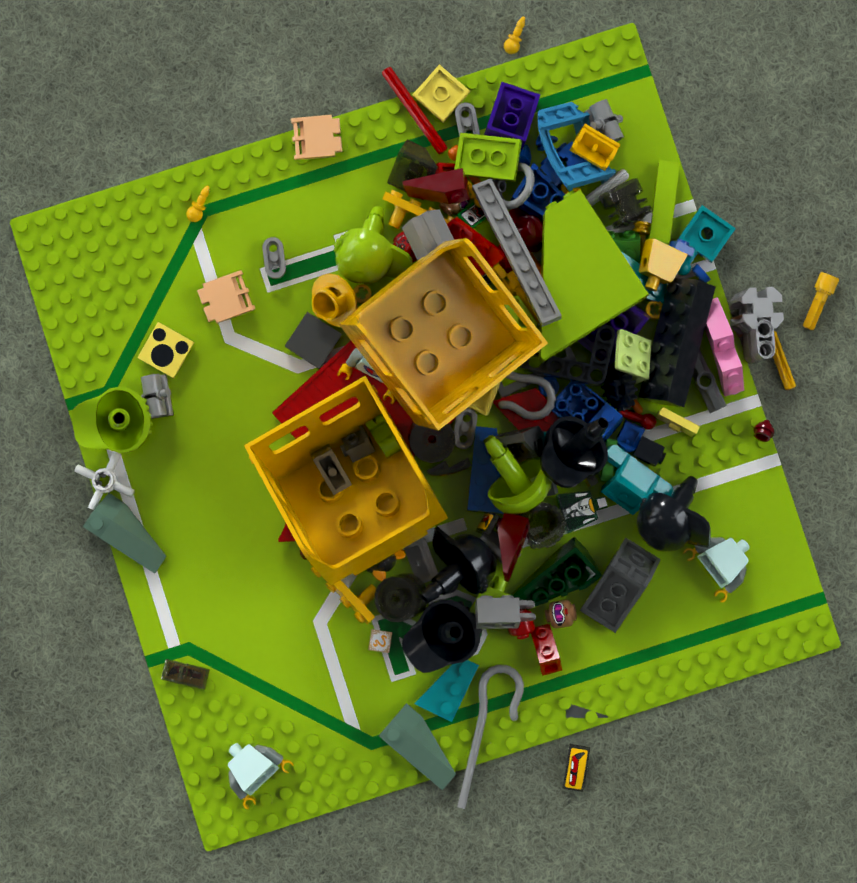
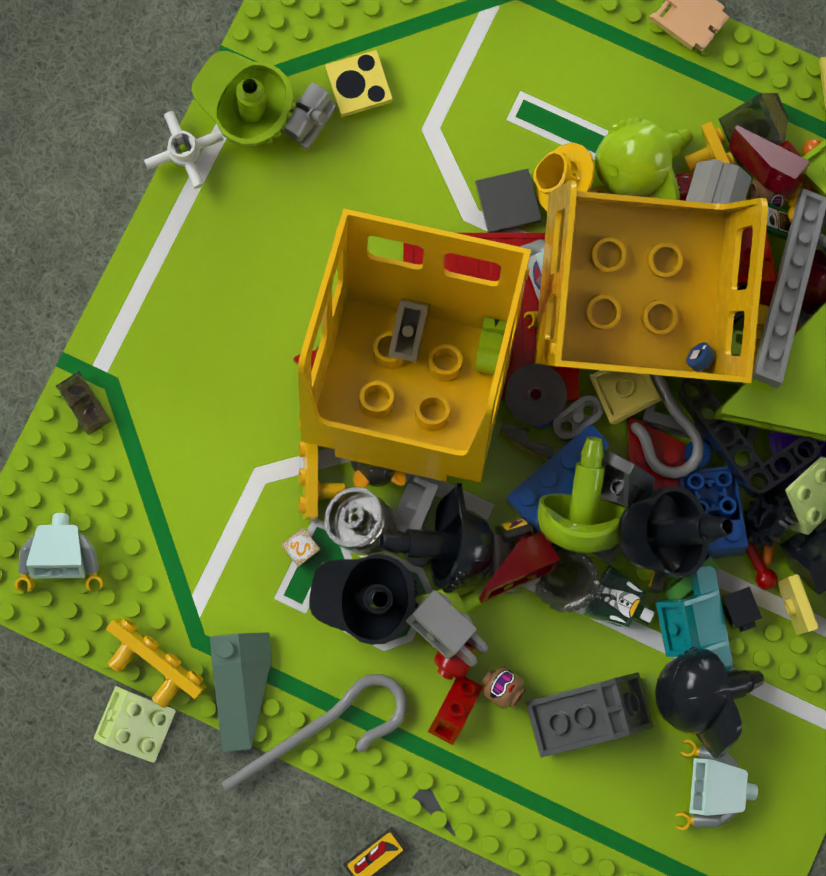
camera: 40 degrees right, 5 degrees down
(121, 529) = (155, 210): sand green wedge -> none
(225, 298) = (461, 85): light nougat plate -> none
(274, 258) = (542, 91): light grey plate -> none
(357, 445) = (457, 331): dark grey brick -> none
(367, 772) = (147, 648): none -> yellow plate
(380, 820) = (134, 725): none -> yellowish green bracket
(414, 110) = (809, 75): red axle -> none
(449, 690) = (322, 659): teal wing -> none
(503, 338) = (700, 357): none -> blue tile
(562, 573) = (542, 648): dark green wedge -> none
(629, 436) = (735, 575): blue plate -> none

